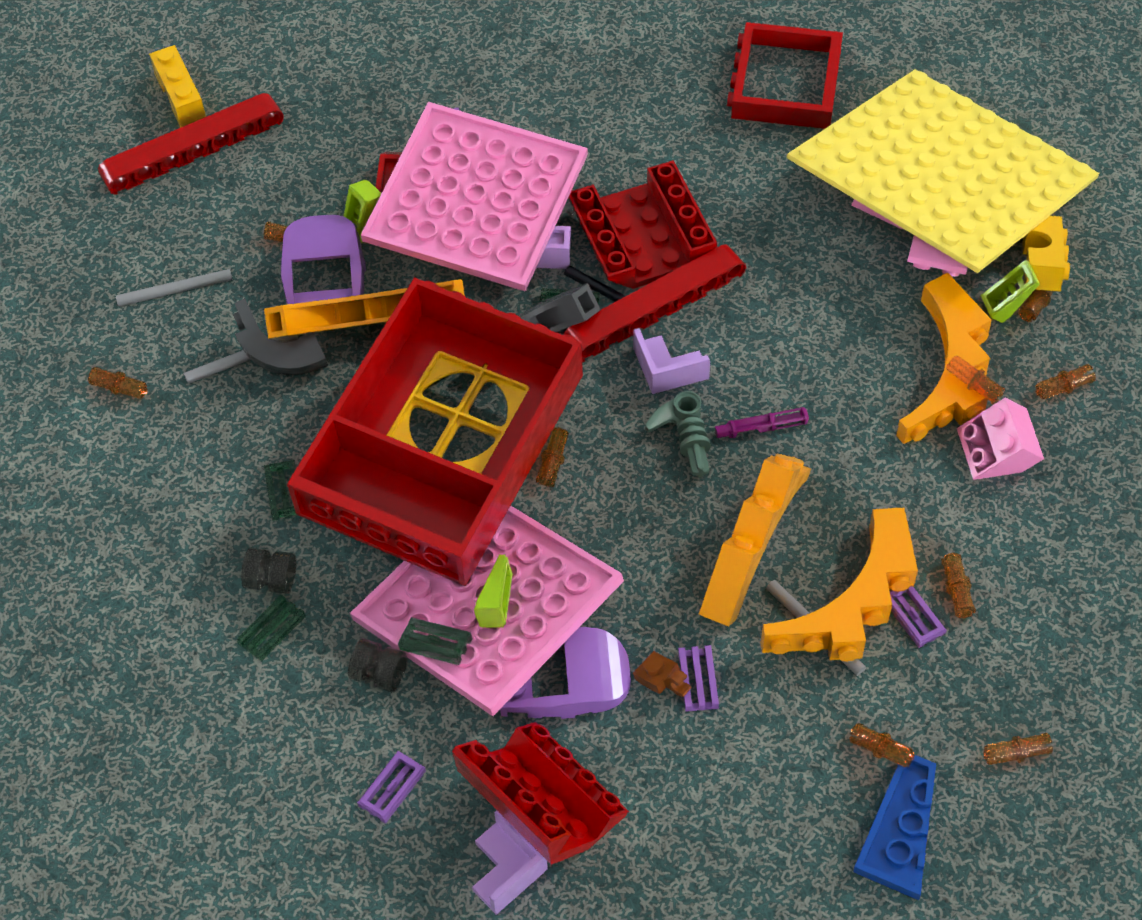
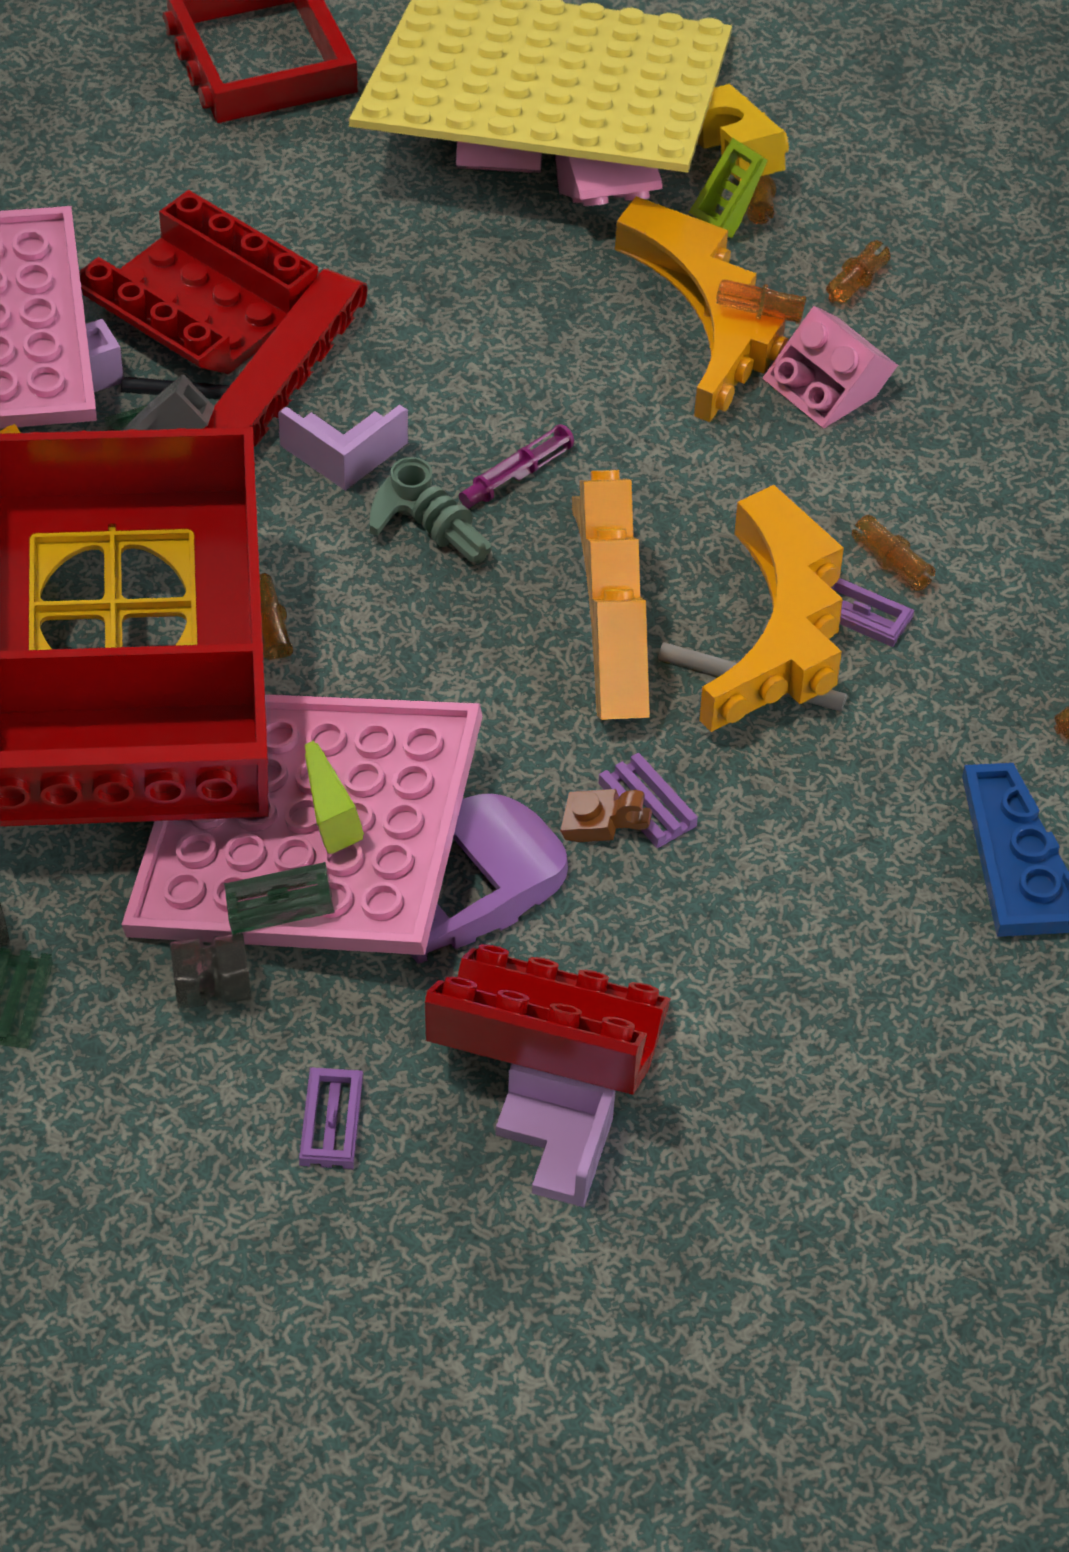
camera: 35 degrees left, 5 degrees down
(881, 745) = (935, 770): clear orange axle -> none

